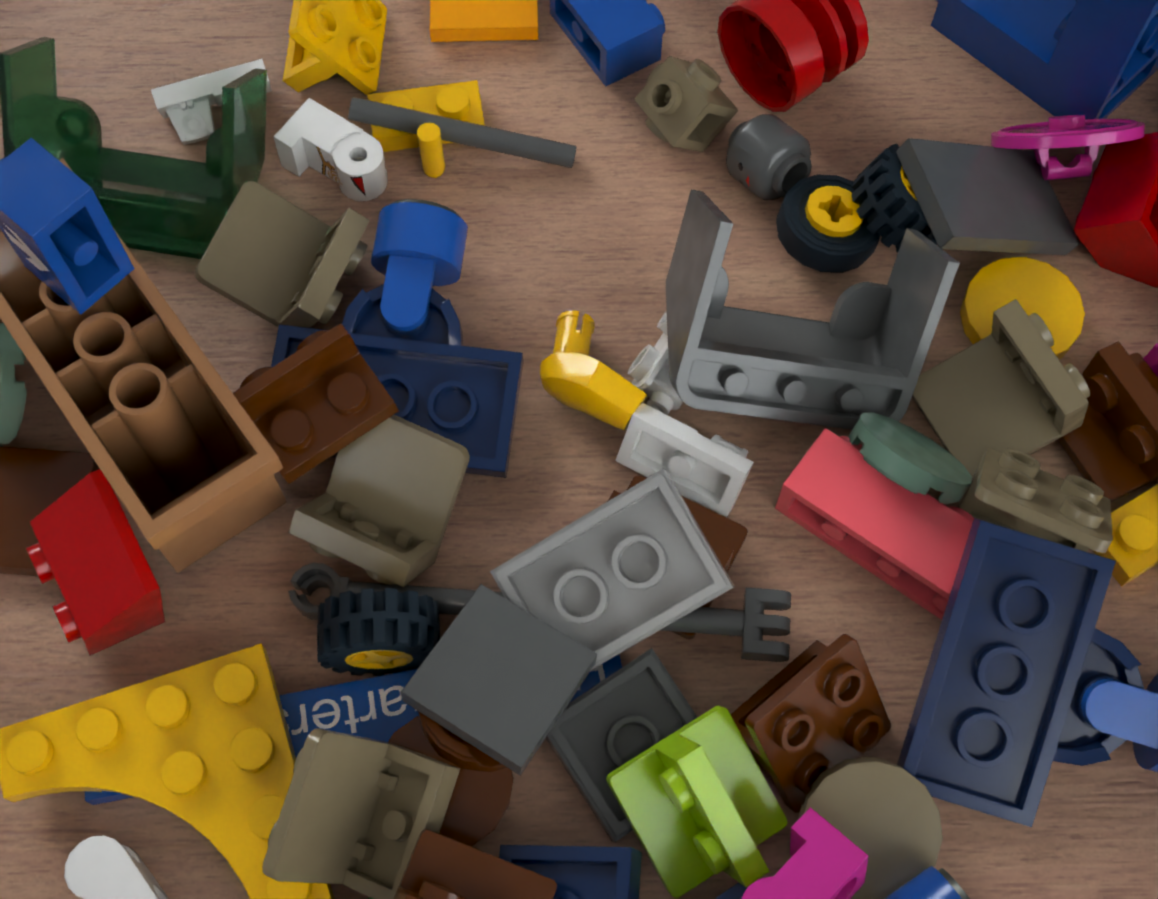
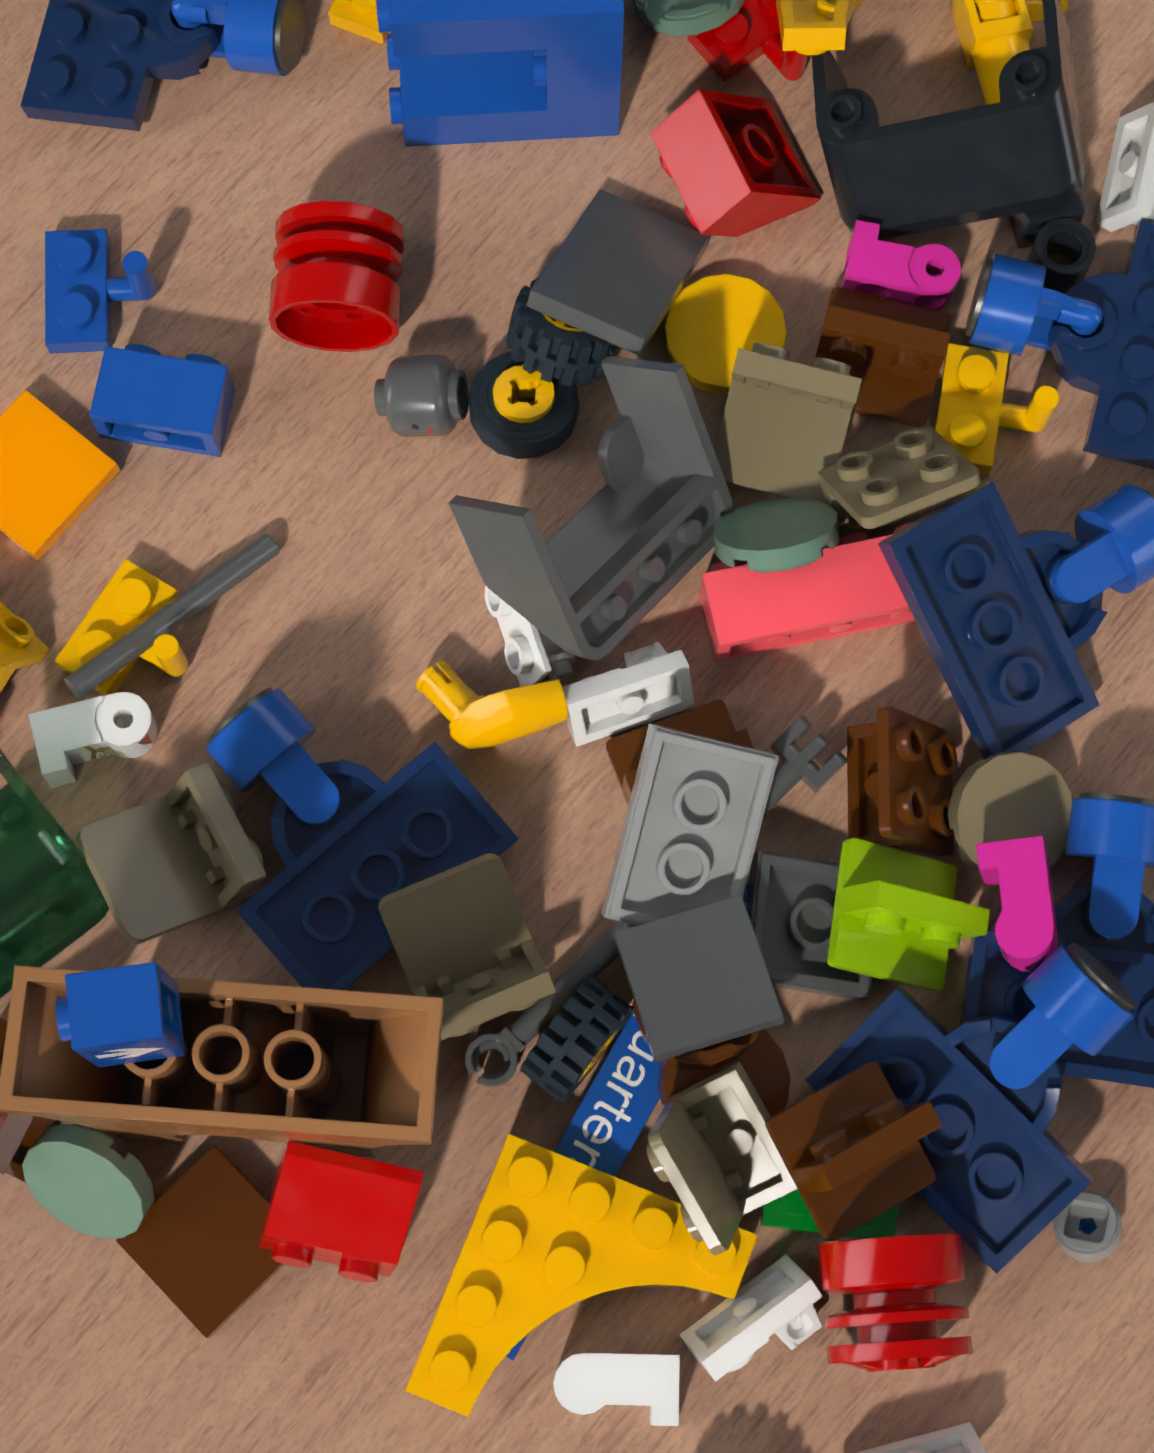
camera: 50 degrees left, 10 degrees up
(315, 401) = (365, 931): reddish brown bracket -> none
(685, 103) = (314, 416): dark tan brick -> none
(1065, 133) = (623, 162): dark pink shield -> none

